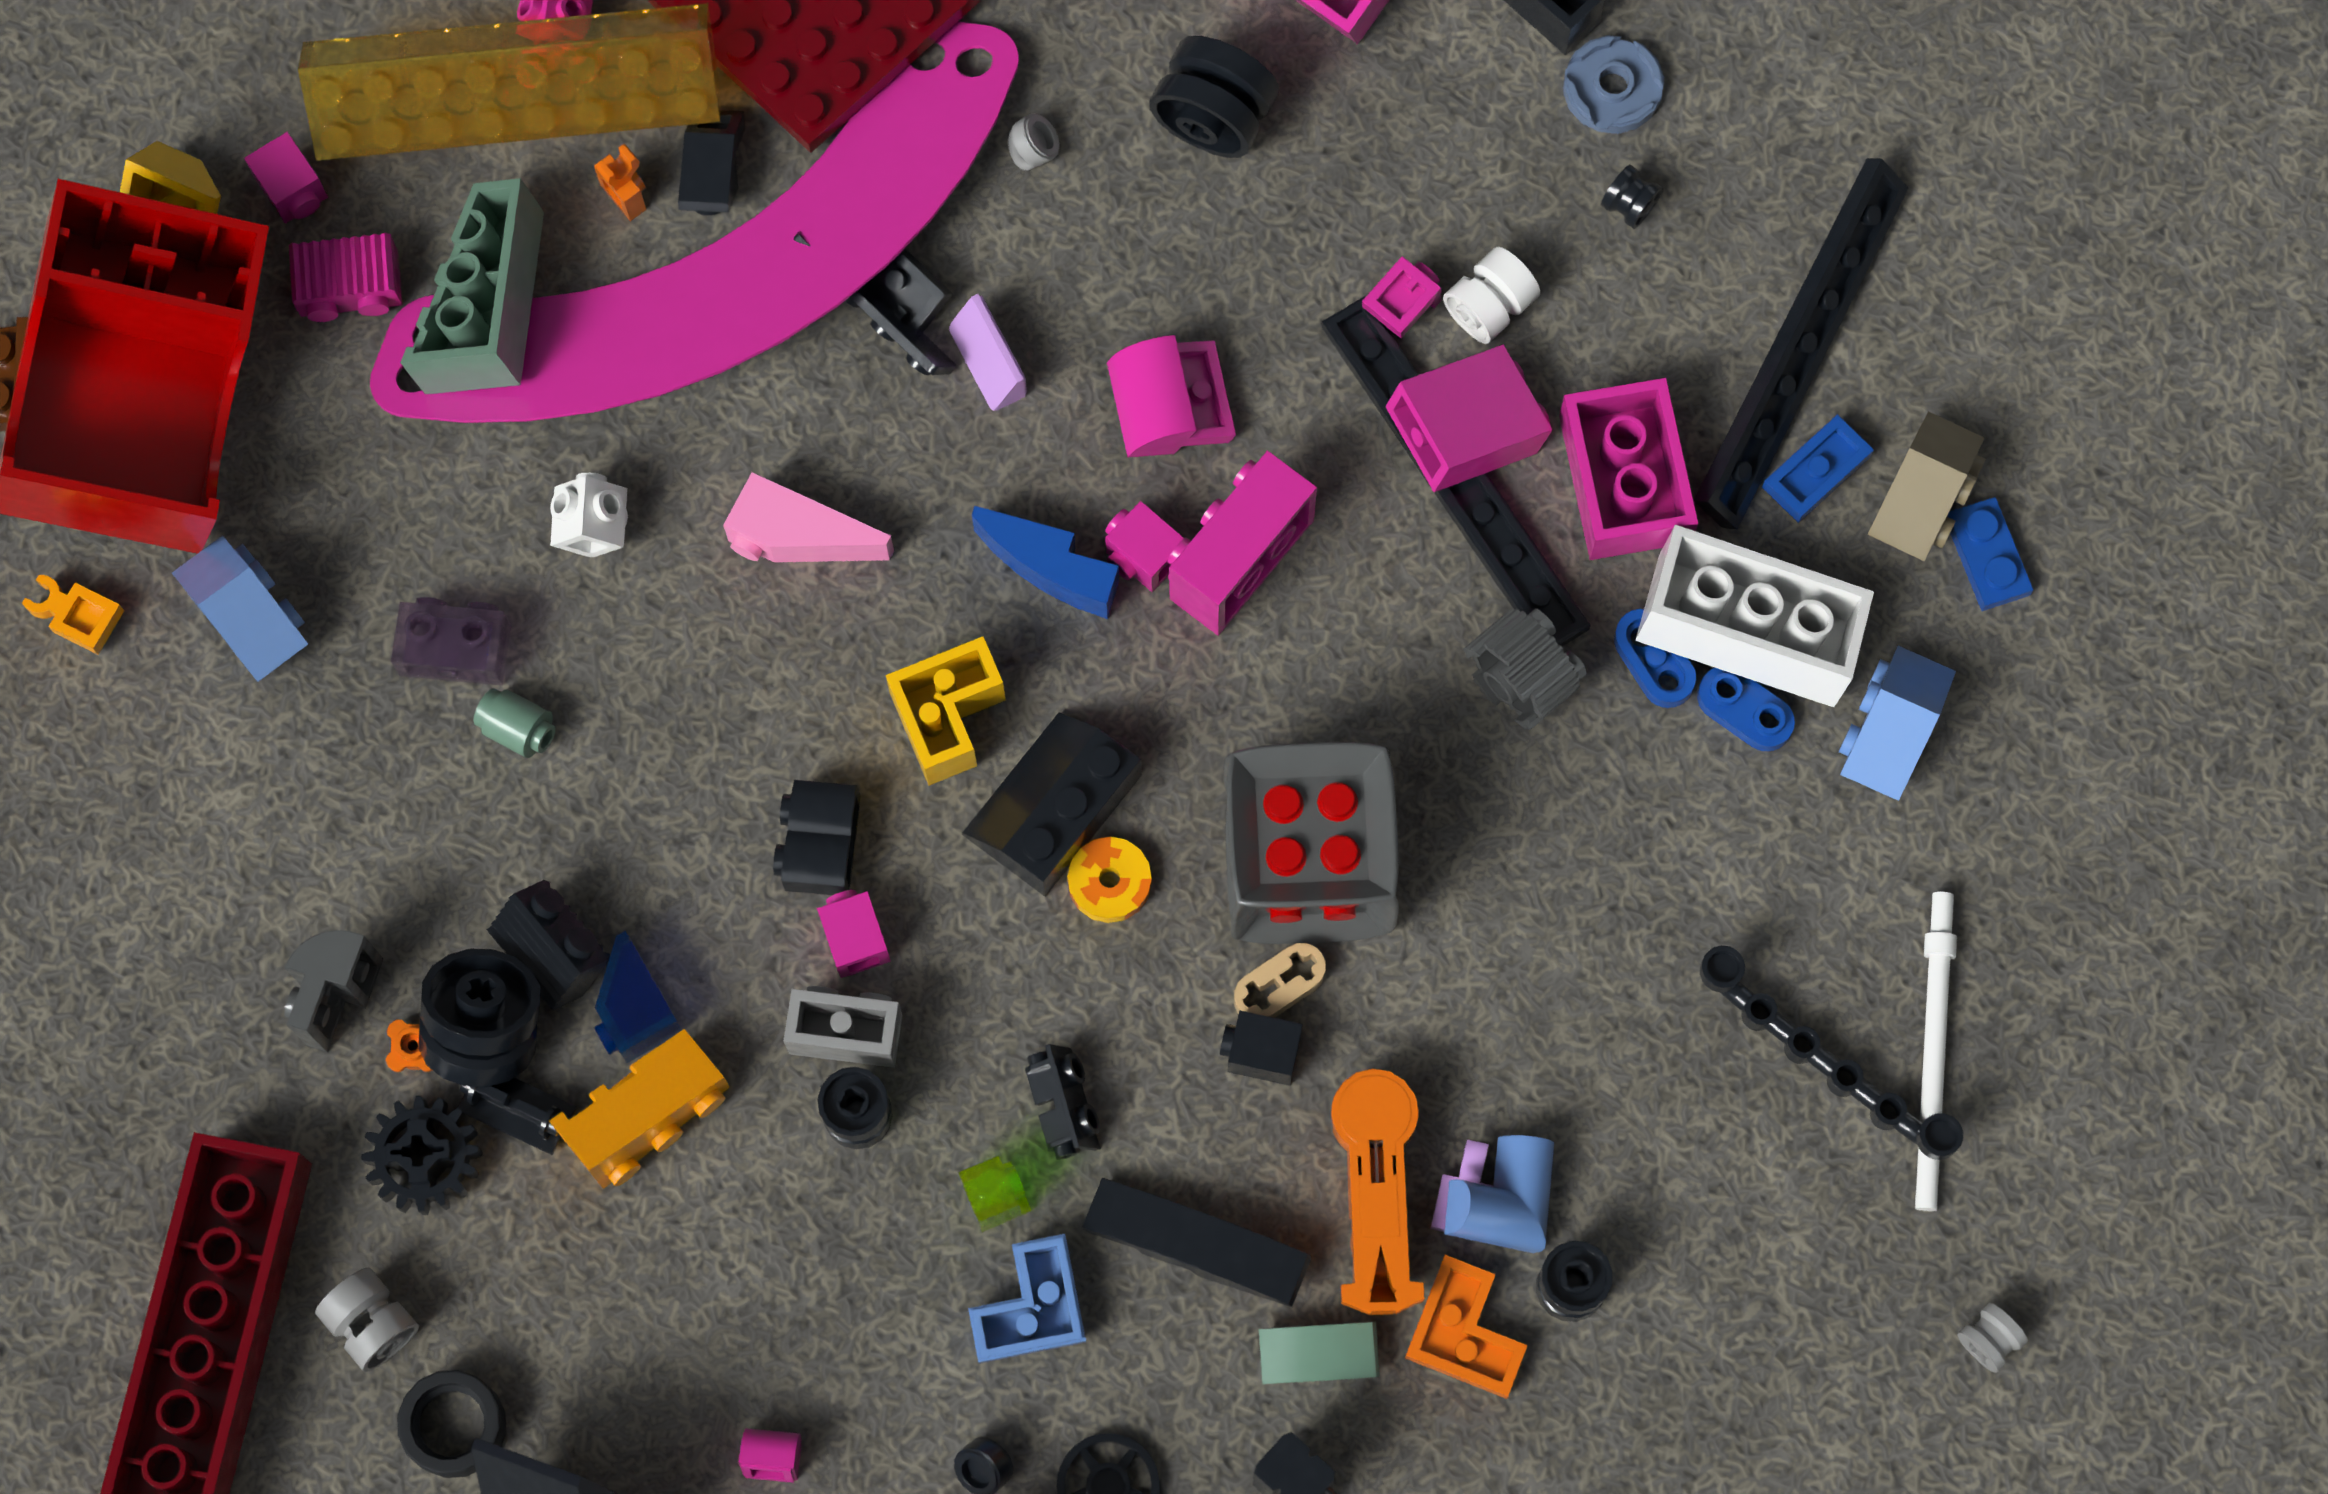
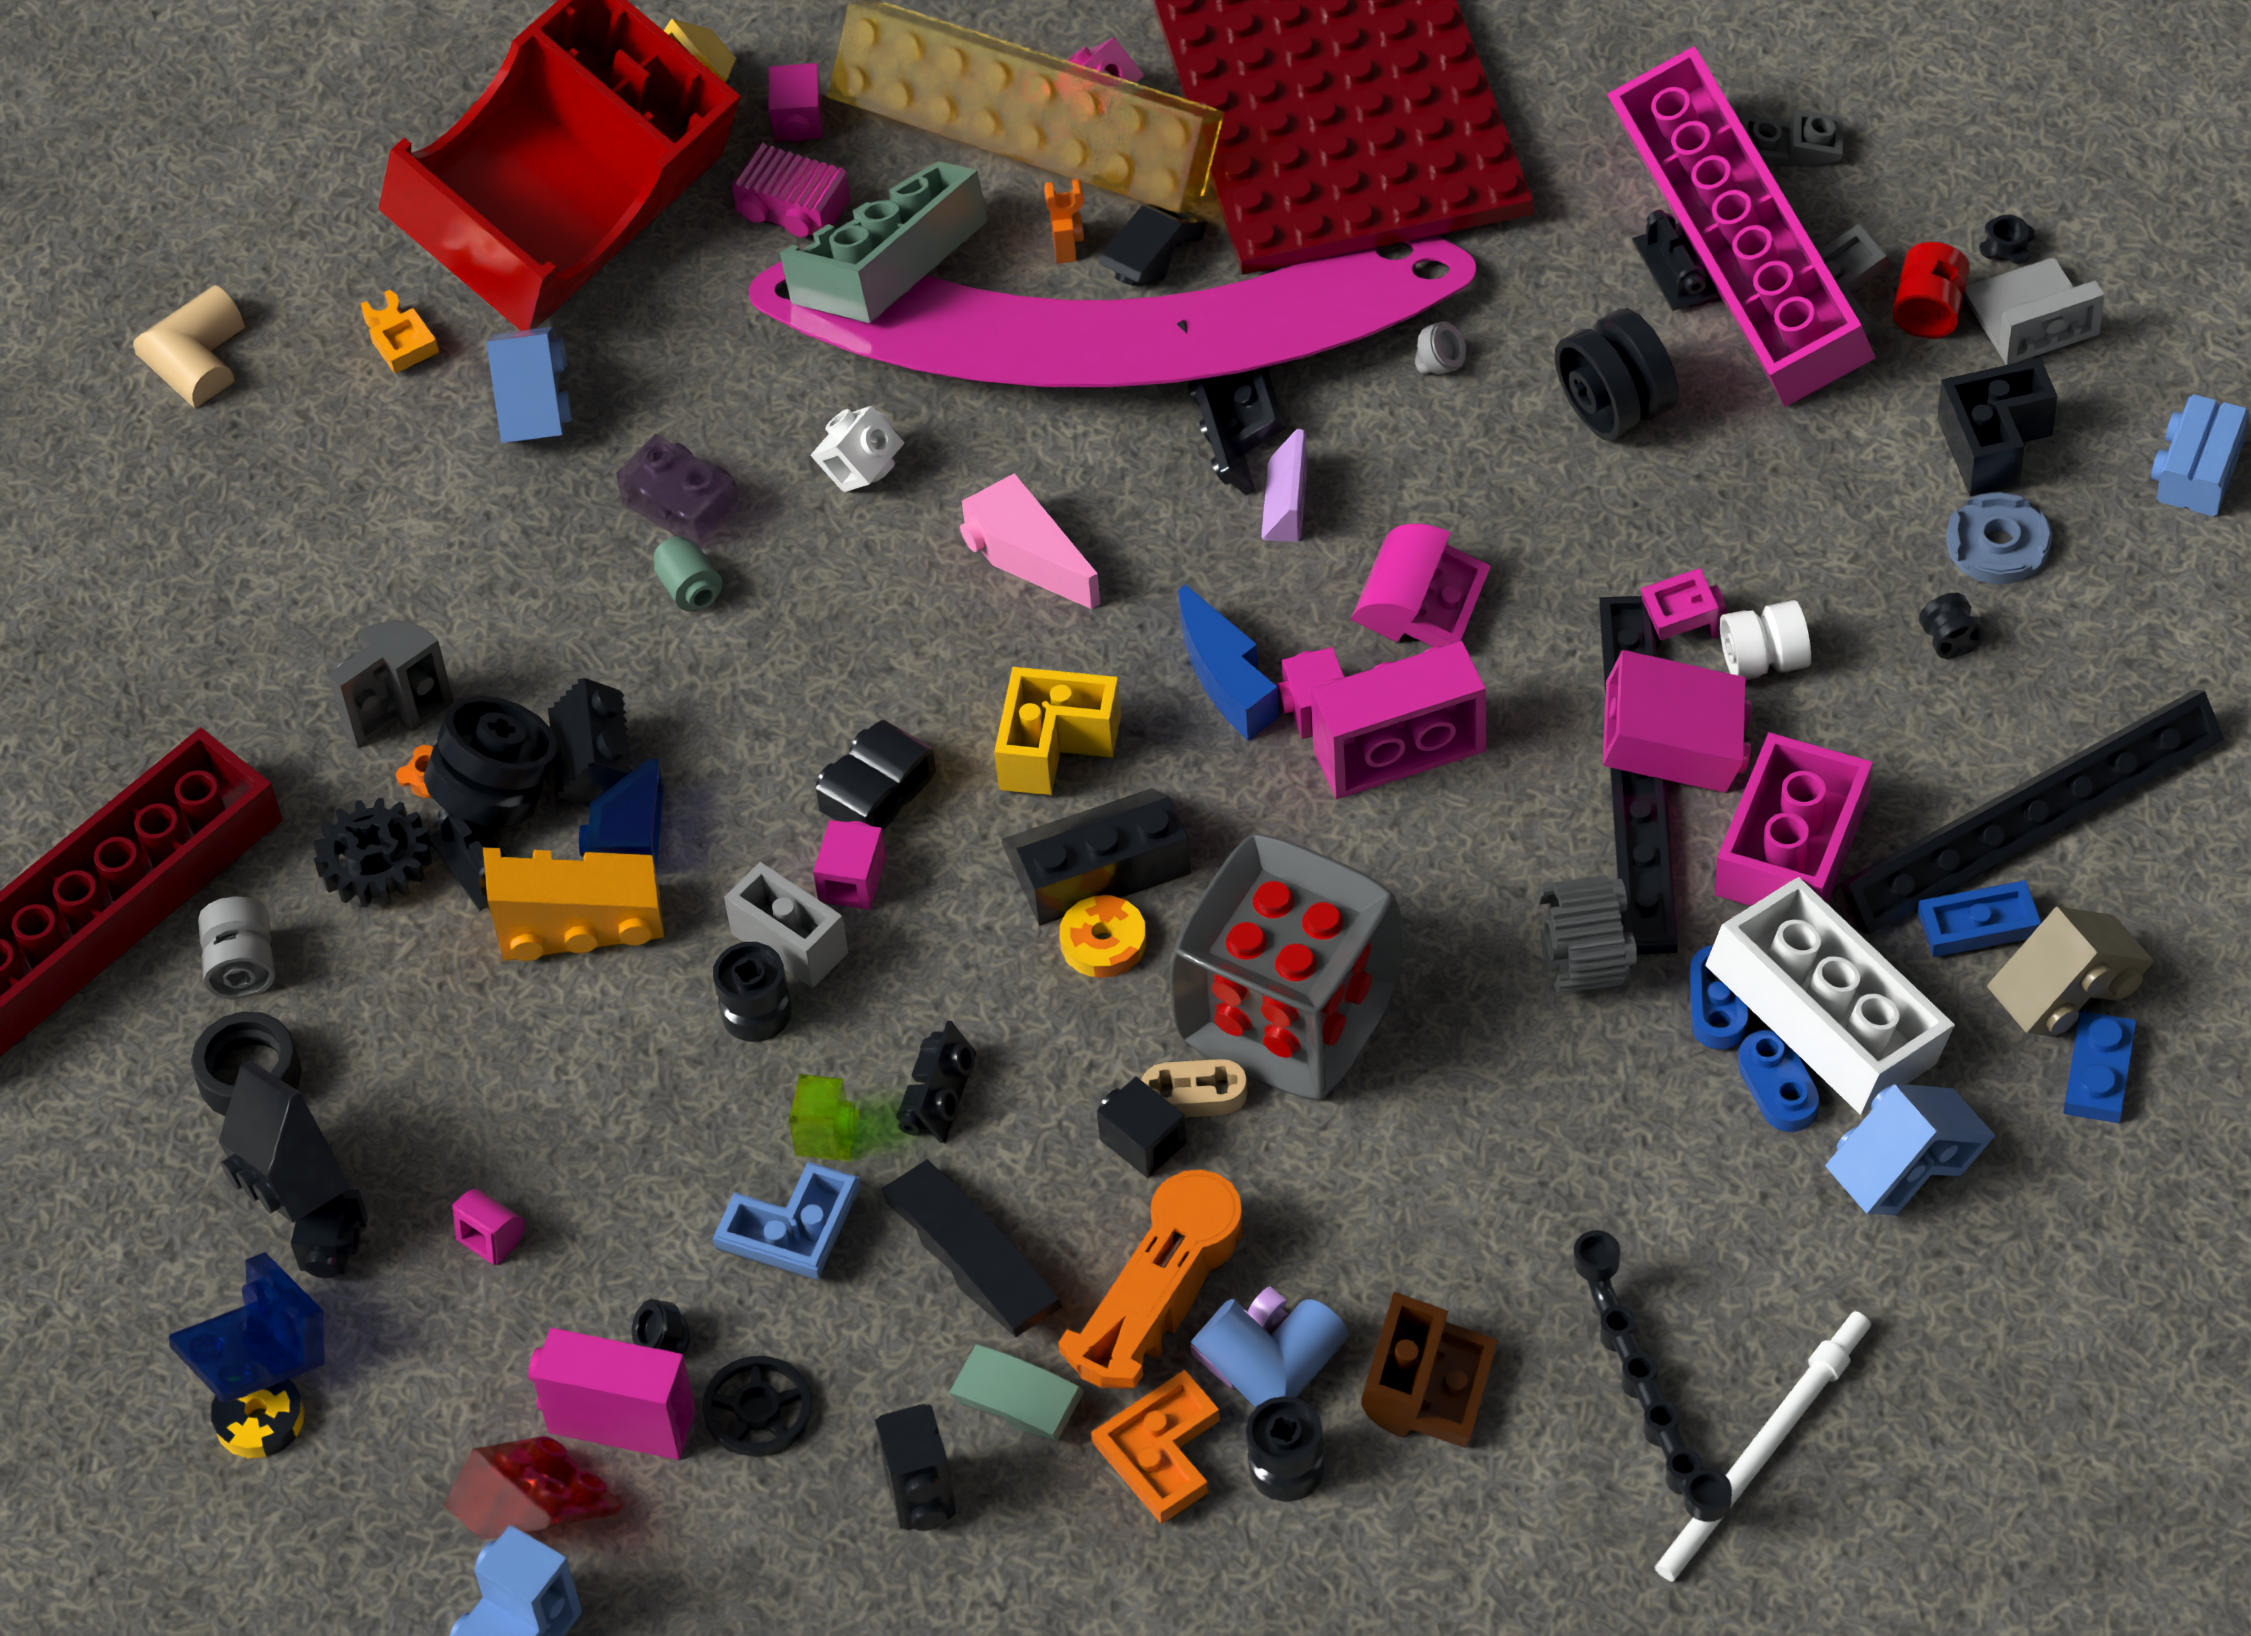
camera: 35 degrees right, 20 degrees down
(1643, 1144) = (1426, 1373): none -> reddish brown brick

